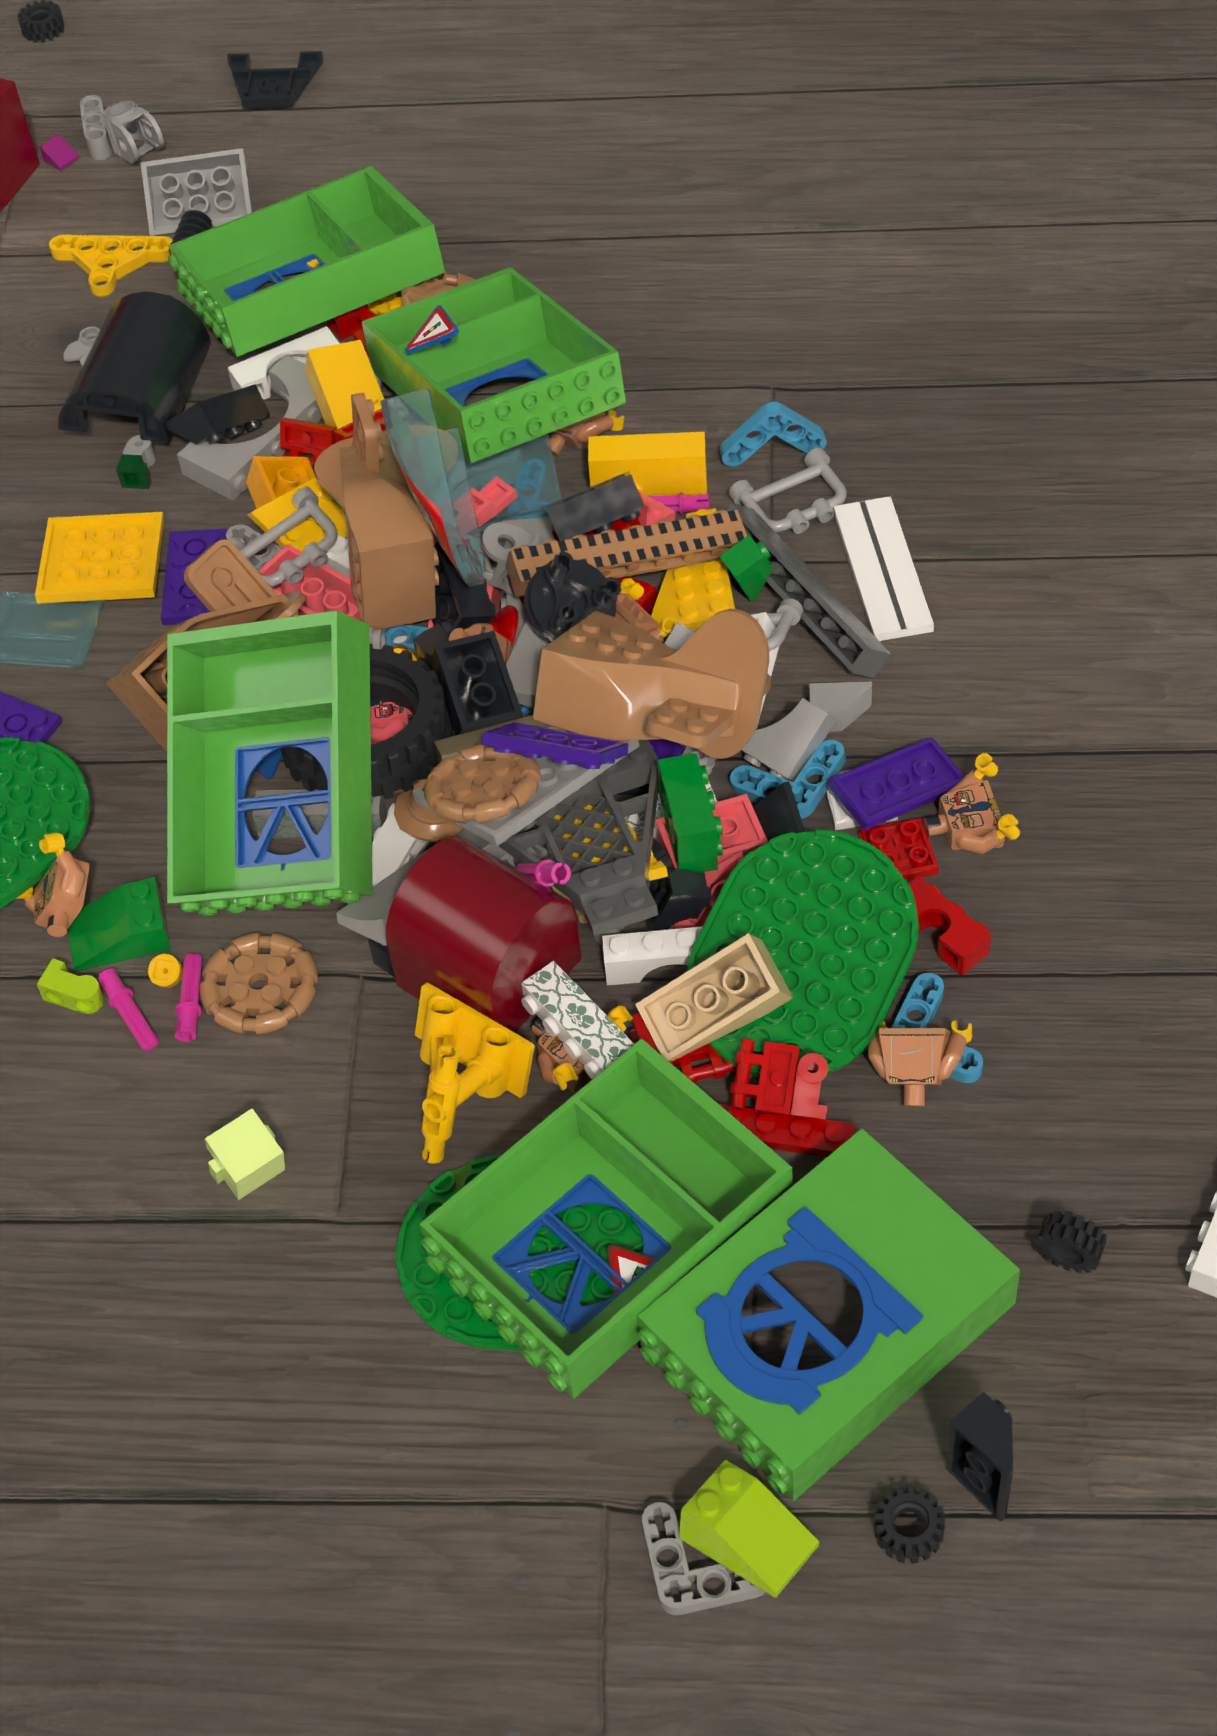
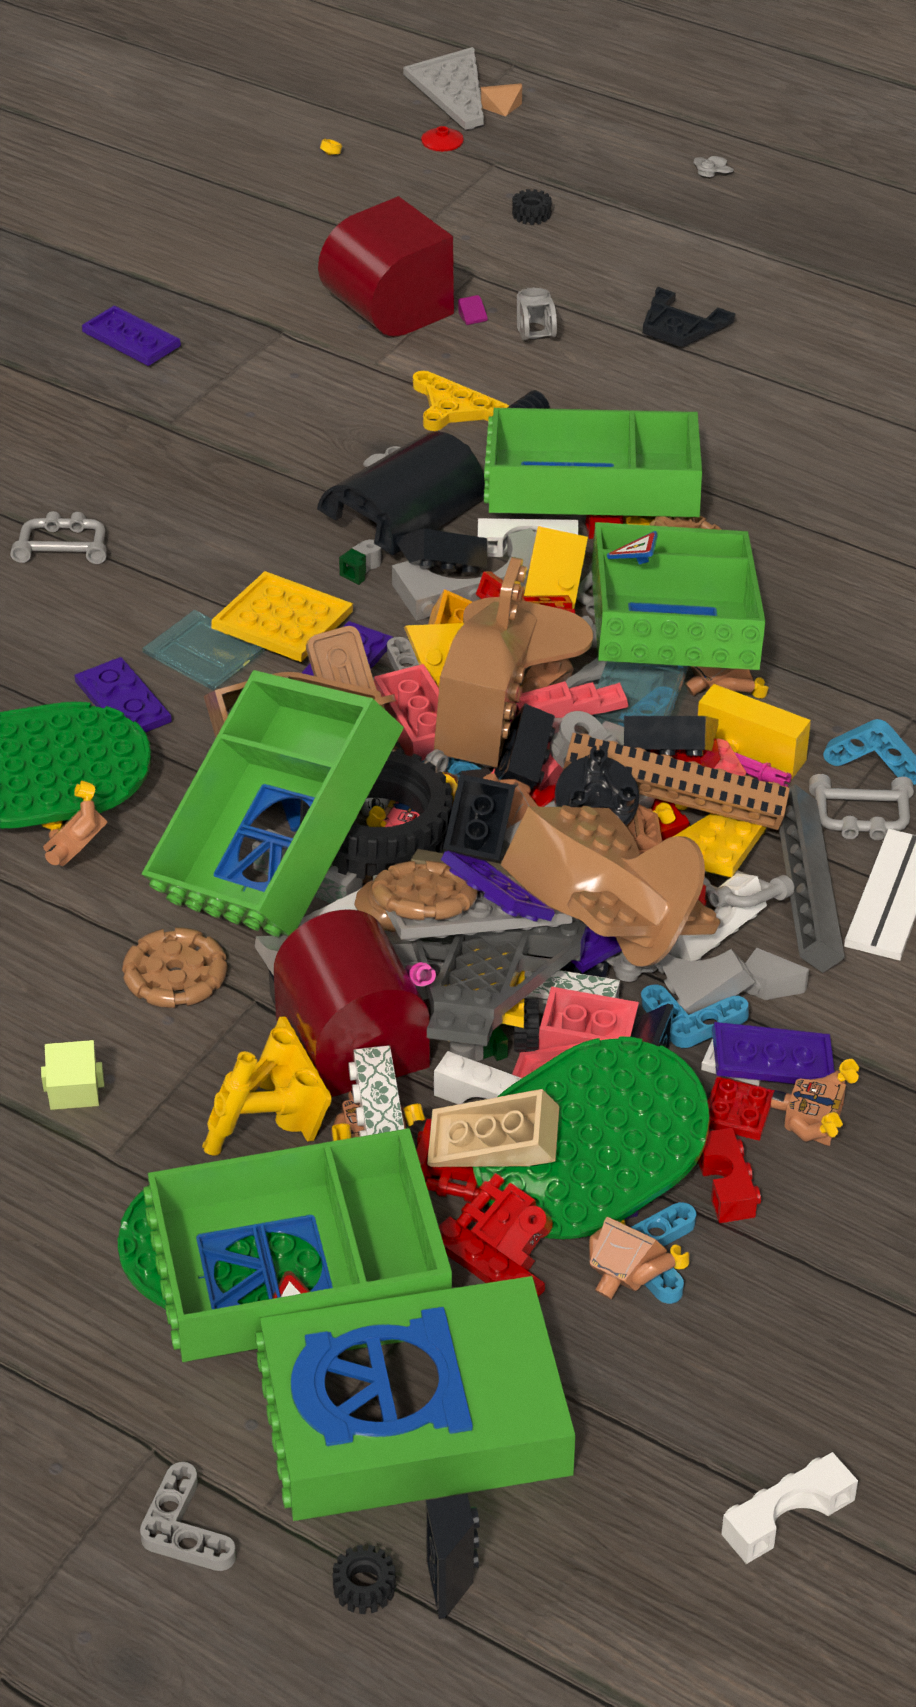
camera: 25 degrees right, 10 degrees down
(70, 990) = (35, 907): lime leg -> none
(94, 127) = (508, 302): light grey beam -> none
(120, 926) = (105, 881): green slope -> none
(121, 999) = (68, 932): dark pink axle -> none
(165, 970) = (114, 926): yellow tile -> none
(188, 1008) = (111, 959): dark pink axle -> none
(202, 182) = (561, 375): light grey slope -> none
(306, 502) = (377, 652): light grey bar -> none
(437, 479) = (540, 656): clear light blue windscreen -> none
(679, 898) = (527, 1051): black arch -> none
(689, 813) = (571, 989): green brick -> none
(746, 1529) = (236, 1512): lime slope -> none
(748, 566) = (771, 837): green slope -> none
(1071, 1242) = (643, 1447): black tyre -> none

